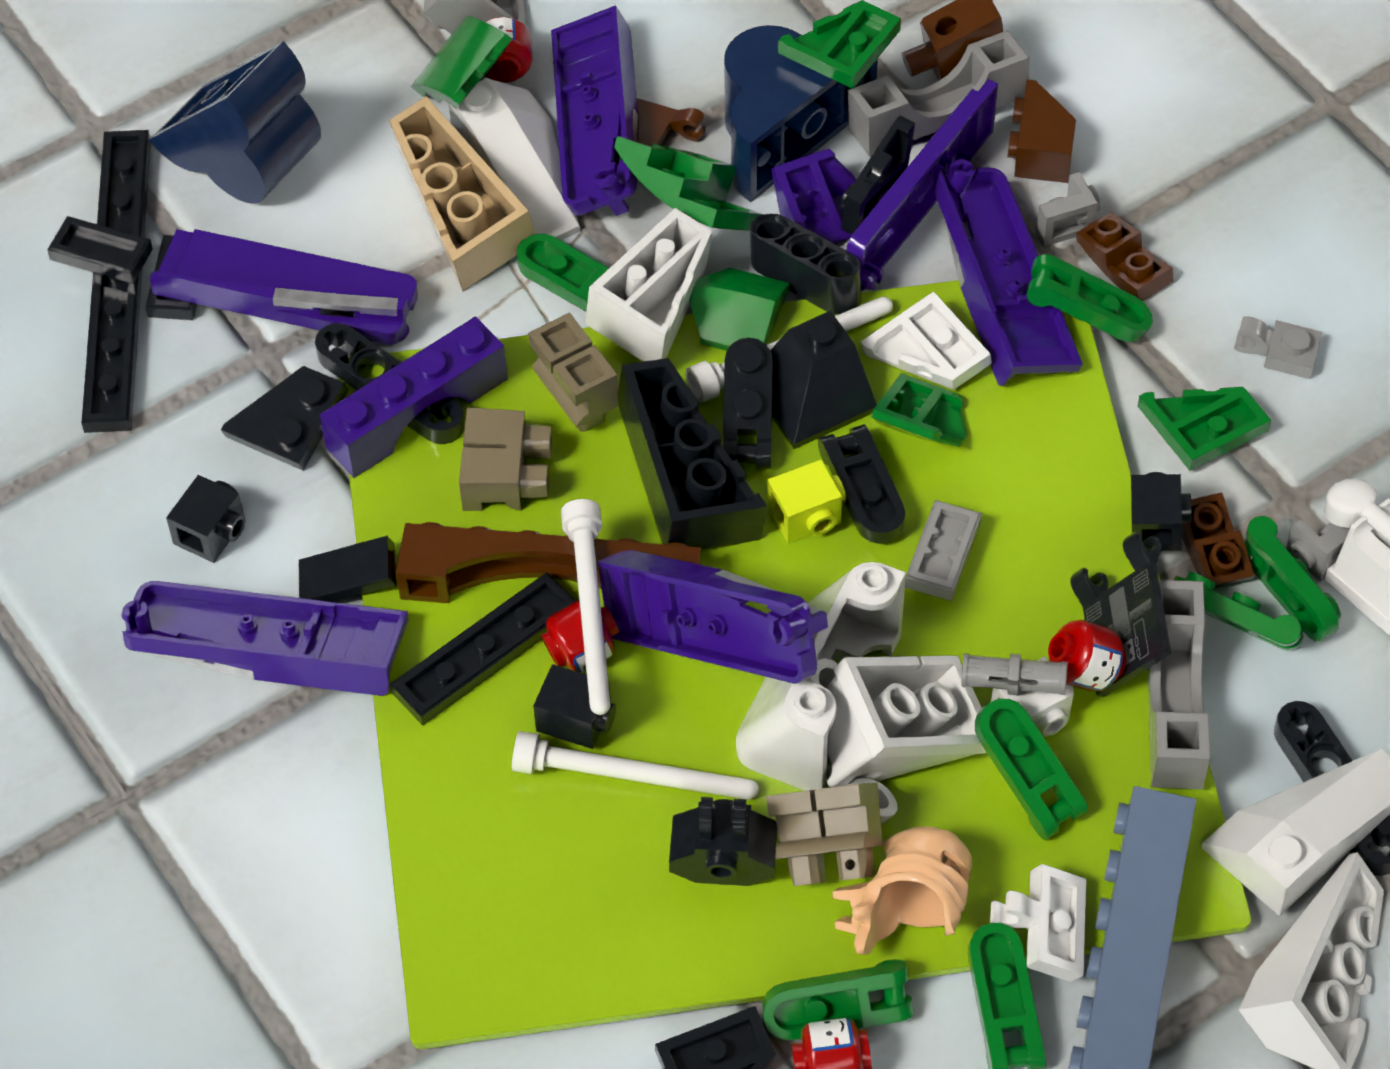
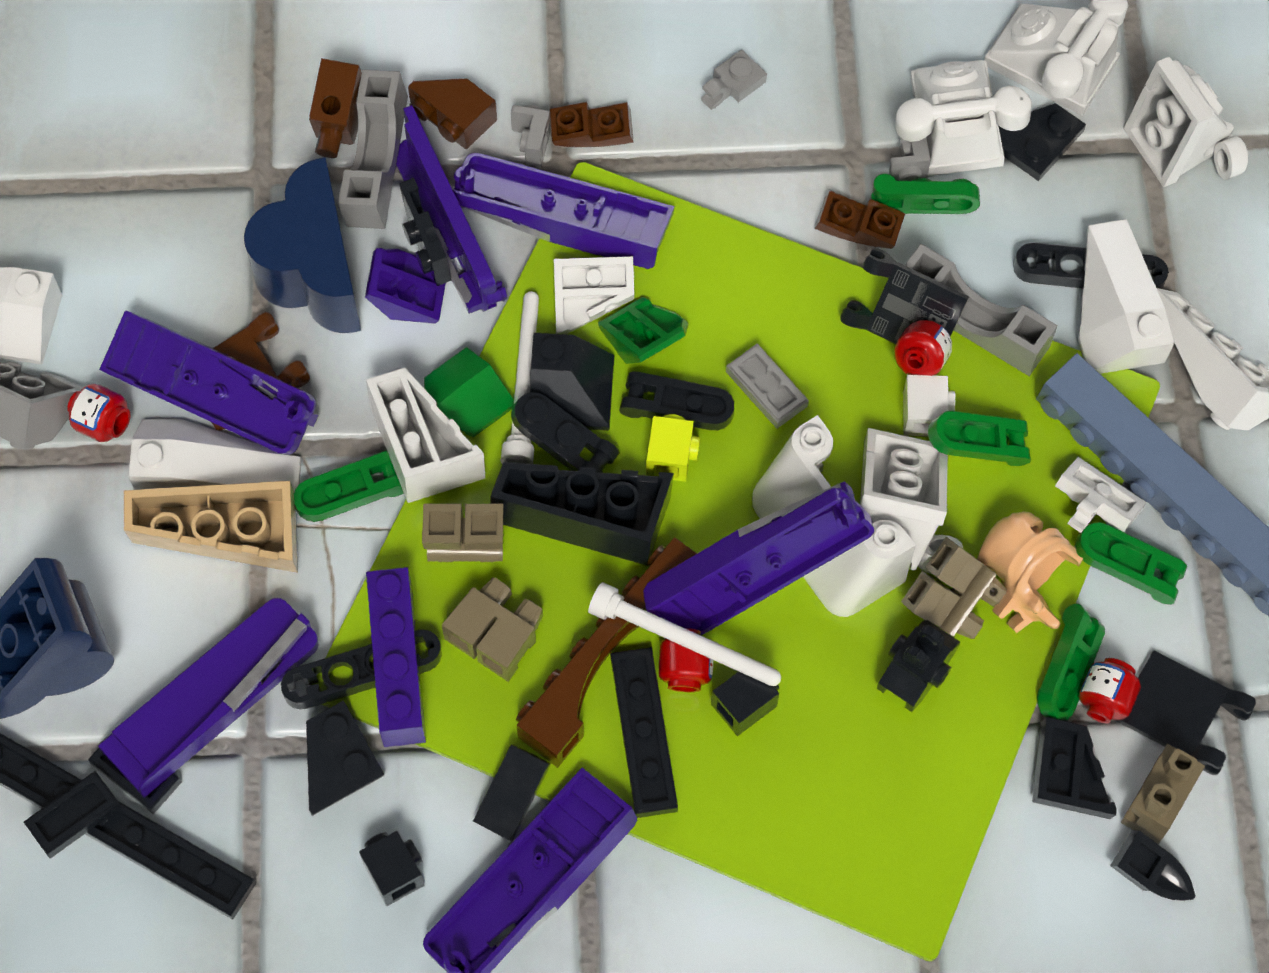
camera: 60 degrees left, 10 degrees up
(462, 61) = (103, 448): green slope -> none
(534, 754) = (759, 748): white piece -> none
(687, 182) = (328, 360): green slope -> none
(807, 261) = (442, 324): black beam -> none
(844, 43) = (316, 177): green wing -> none
(1014, 674) = (918, 400): light grey pin -> none
(1088, 298) = (622, 168): green plate -> none
(1160, 508) = (828, 236): black brick -> none
(1205, 422) = (765, 165): green wing -> none
(1243, 614) = (959, 226): green plate -> none

